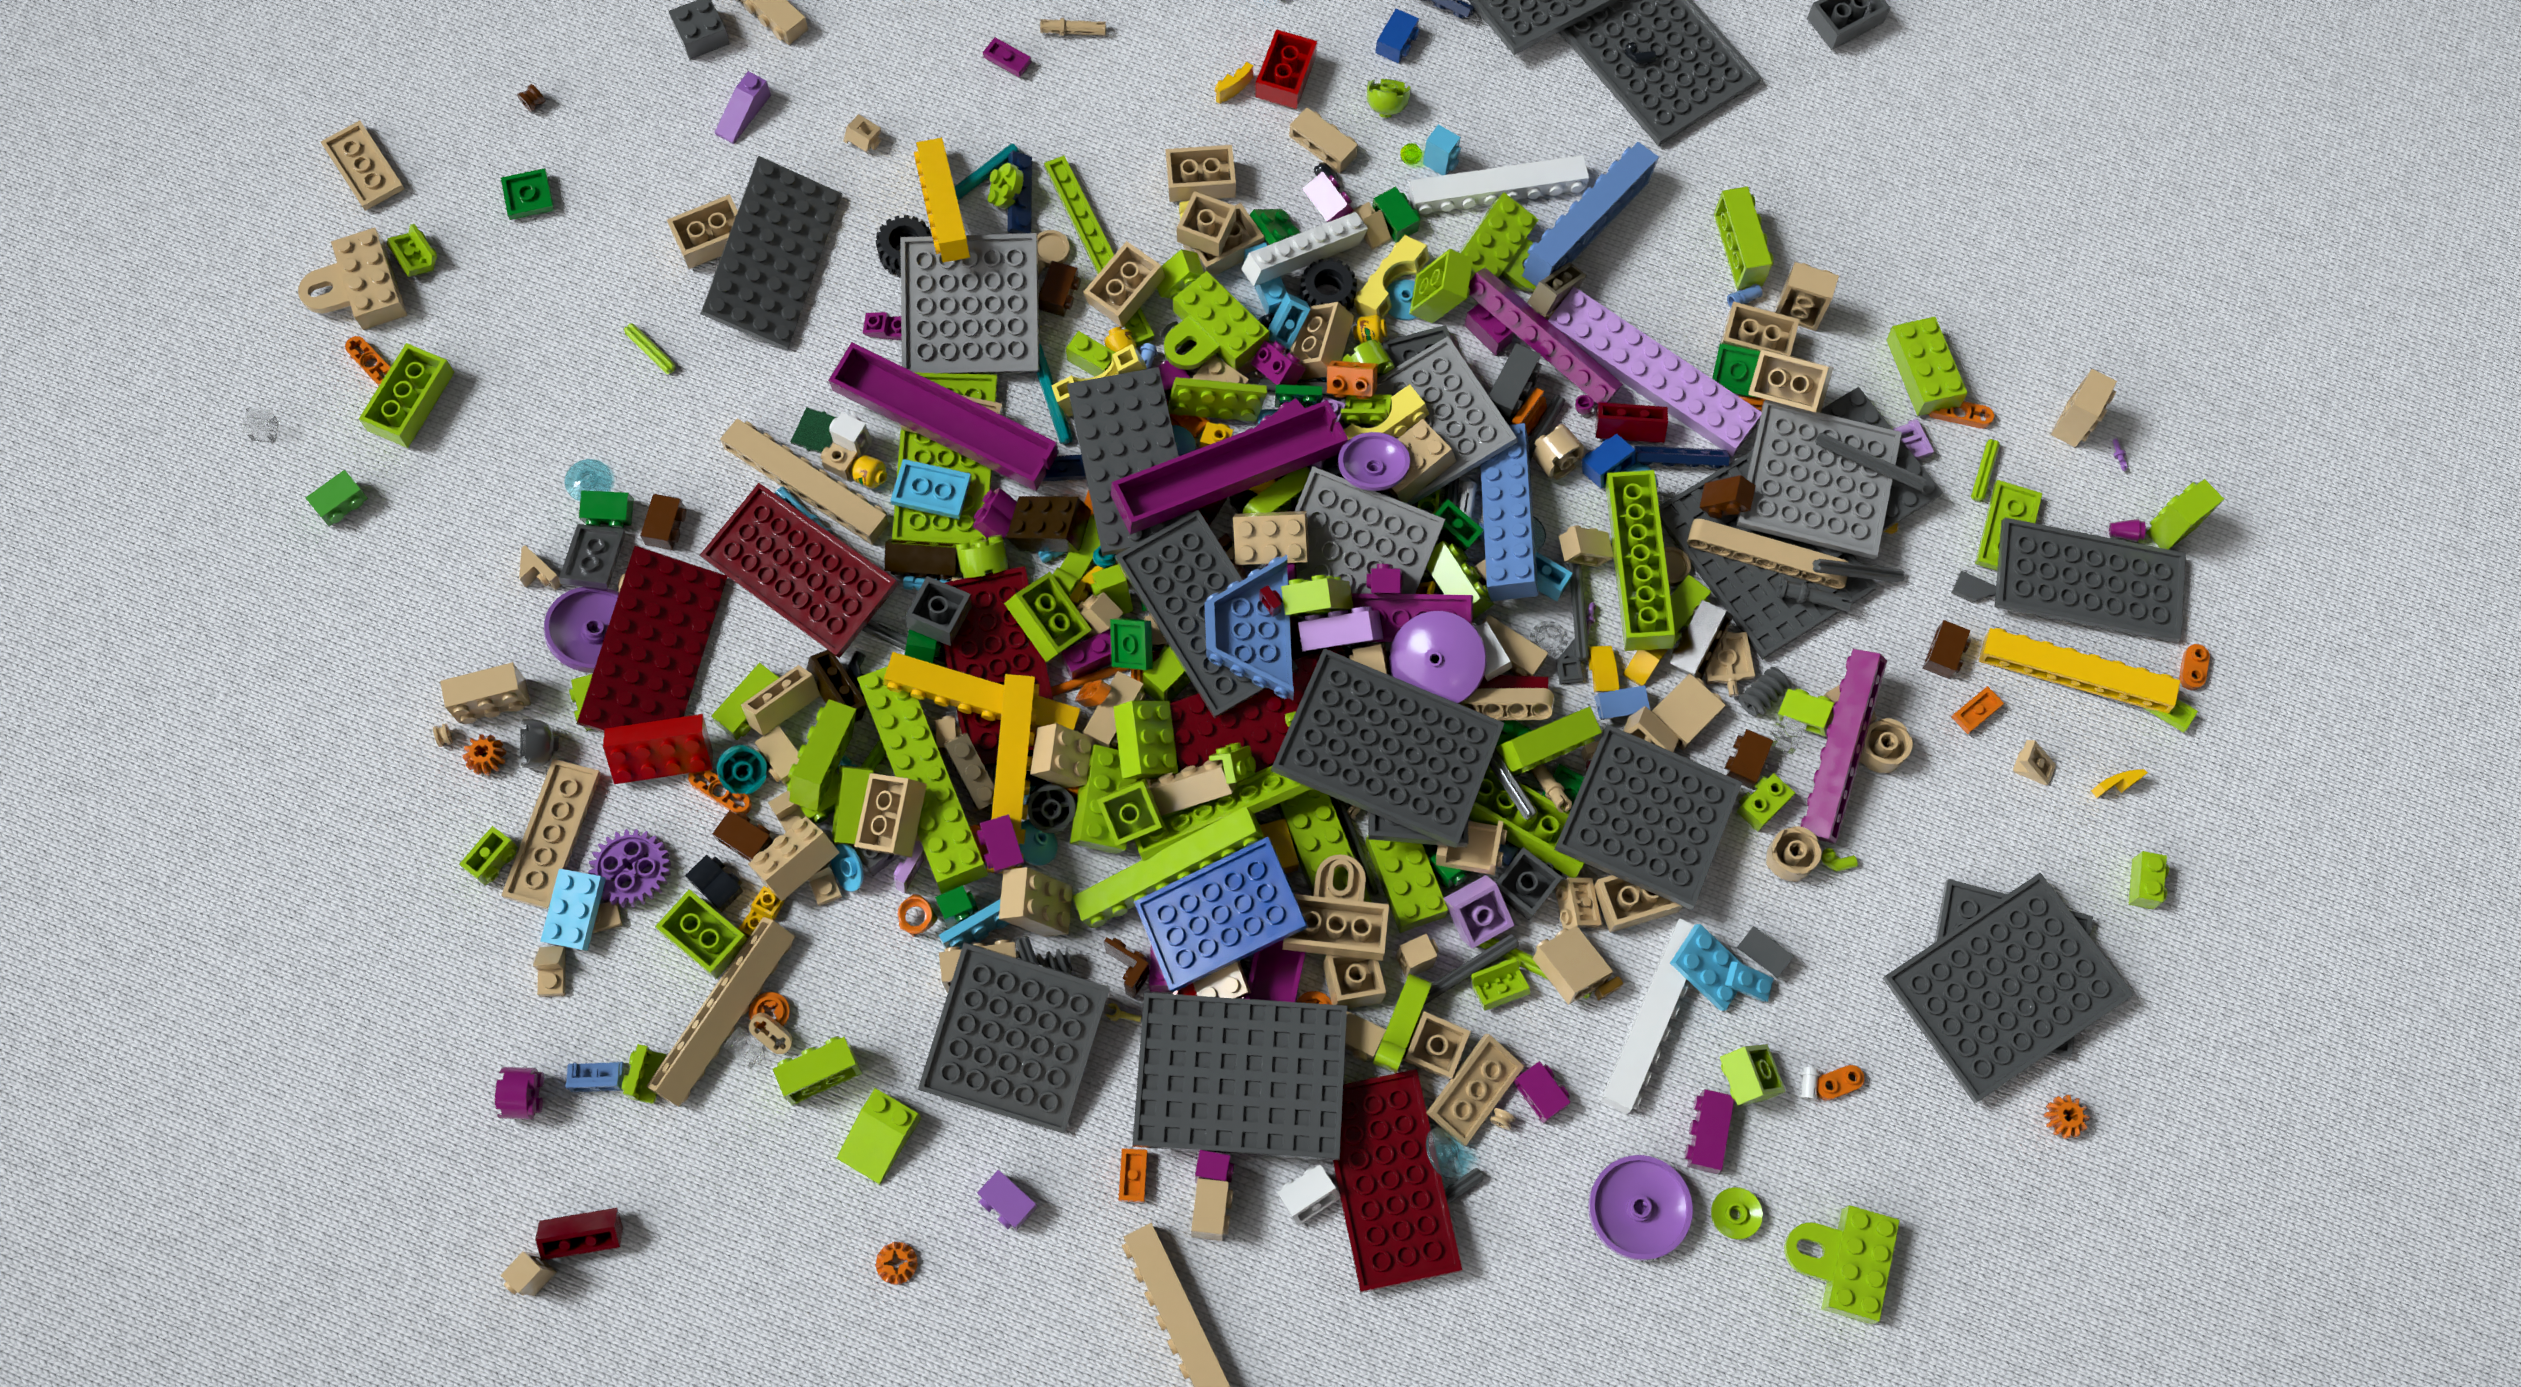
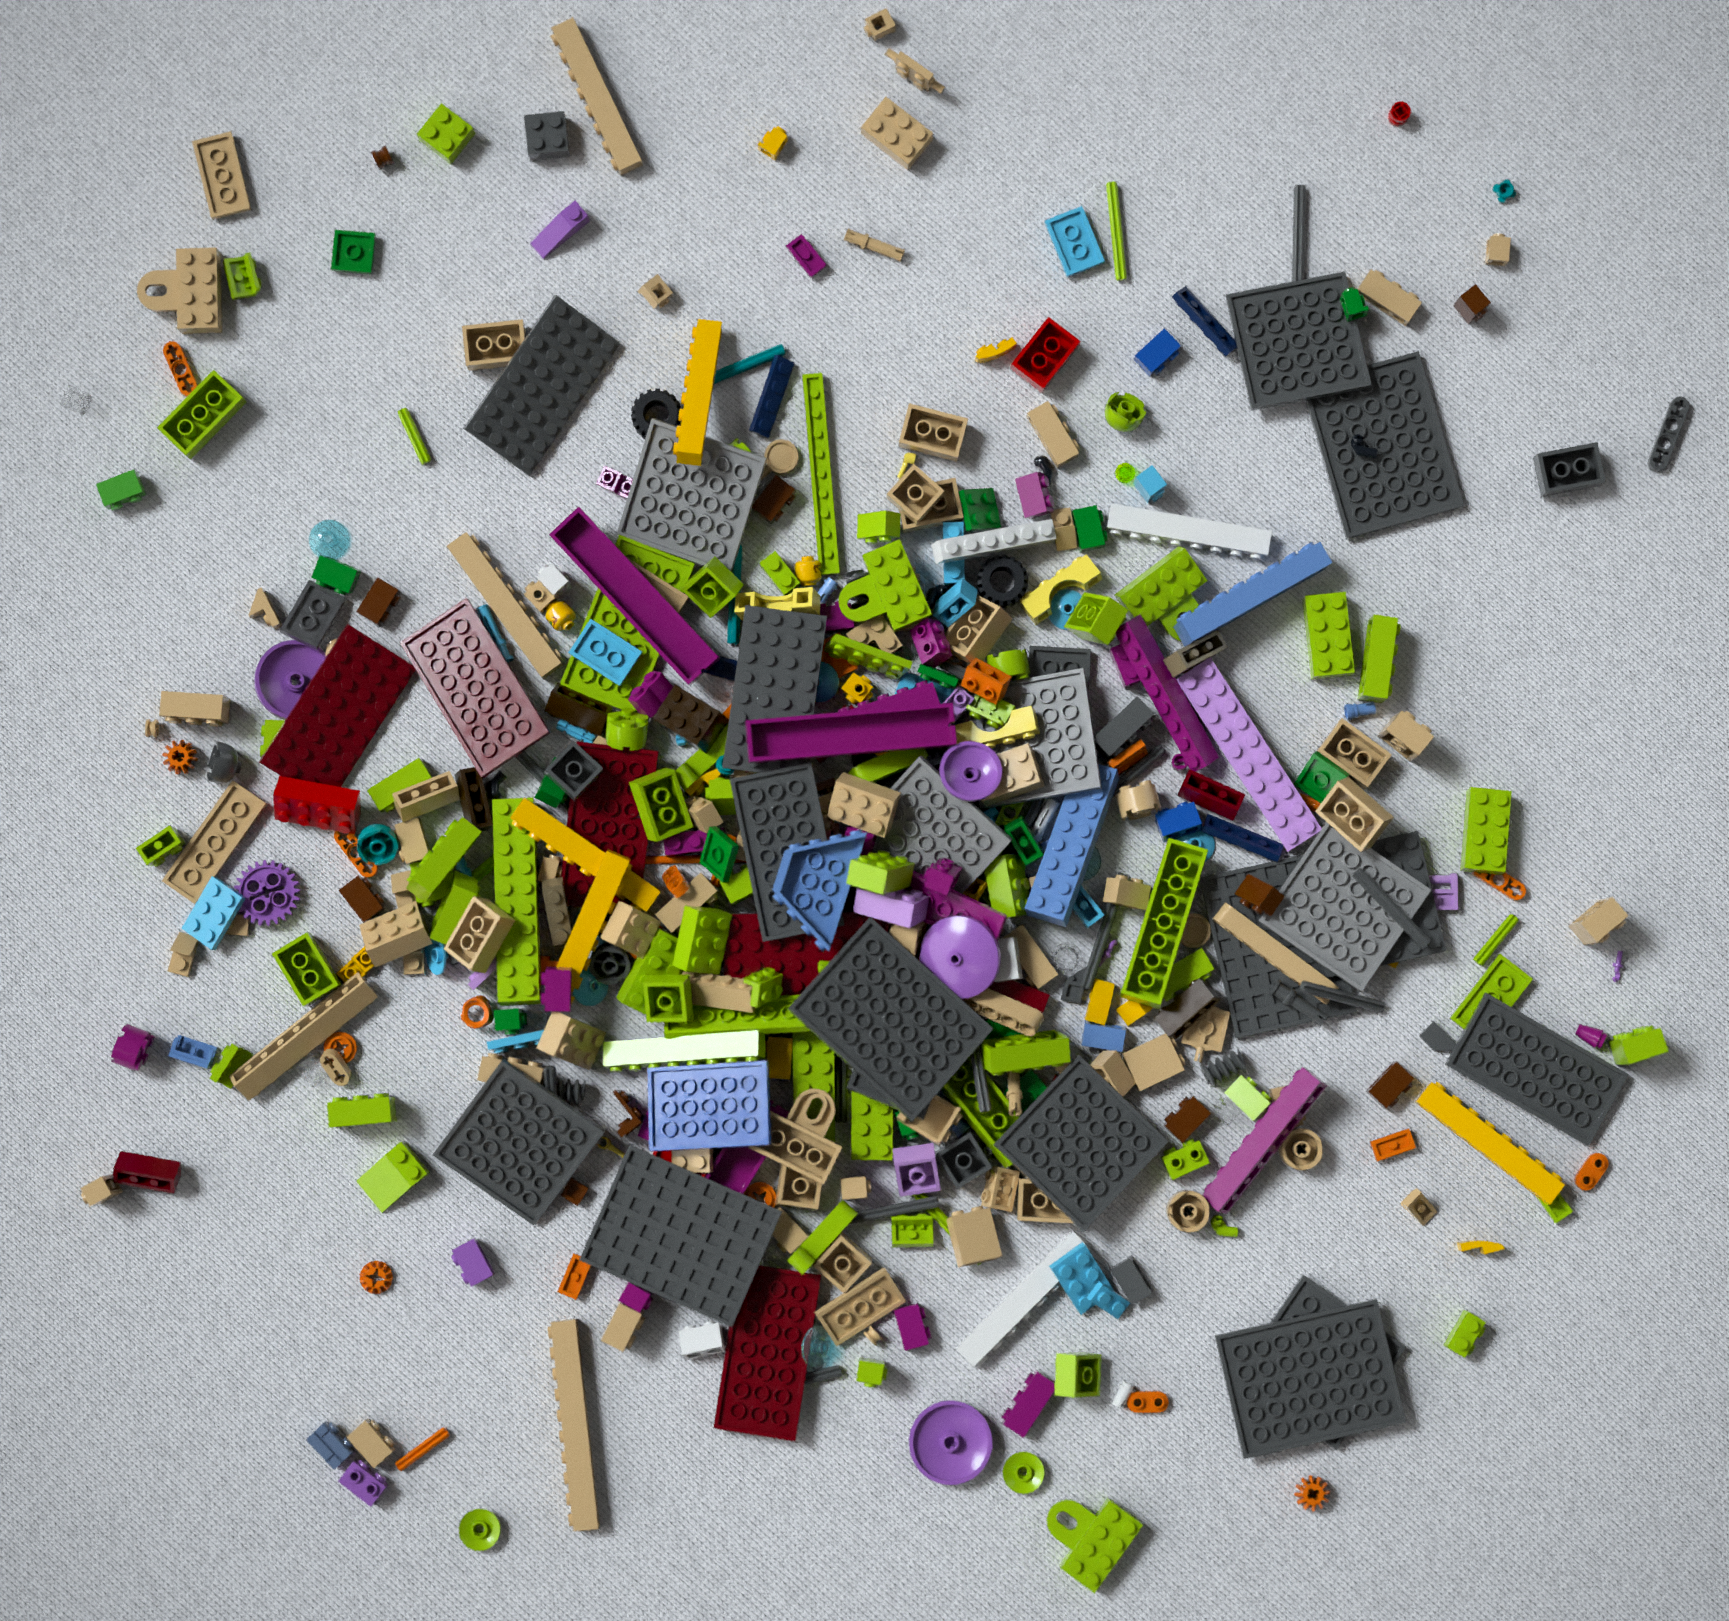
camera: 25 degrees right, 15 degrees up
(591, 56) = (446, 133): none -> lime brick
(714, 882) = (329, 929): black brick -> none
(813, 431) = (529, 559): clear green piece -> none
(1004, 185) = (760, 387): lime plate -> none
(1024, 386) = (712, 587): none -> lime brick
(1098, 1078) = (574, 1191): none -> reddish brown plate
(1124, 284) = (828, 522): tan brick -> none
(1271, 600) = (839, 866): dark red plate -> none
(1370, 328) = (1024, 632): yellow head -> none
(1517, 1157) = (871, 1372): none -> lime brick
(1608, 988) = (996, 1264): pearl gold tile -> none
(1682, 236) = (1328, 635): none -> lime brick

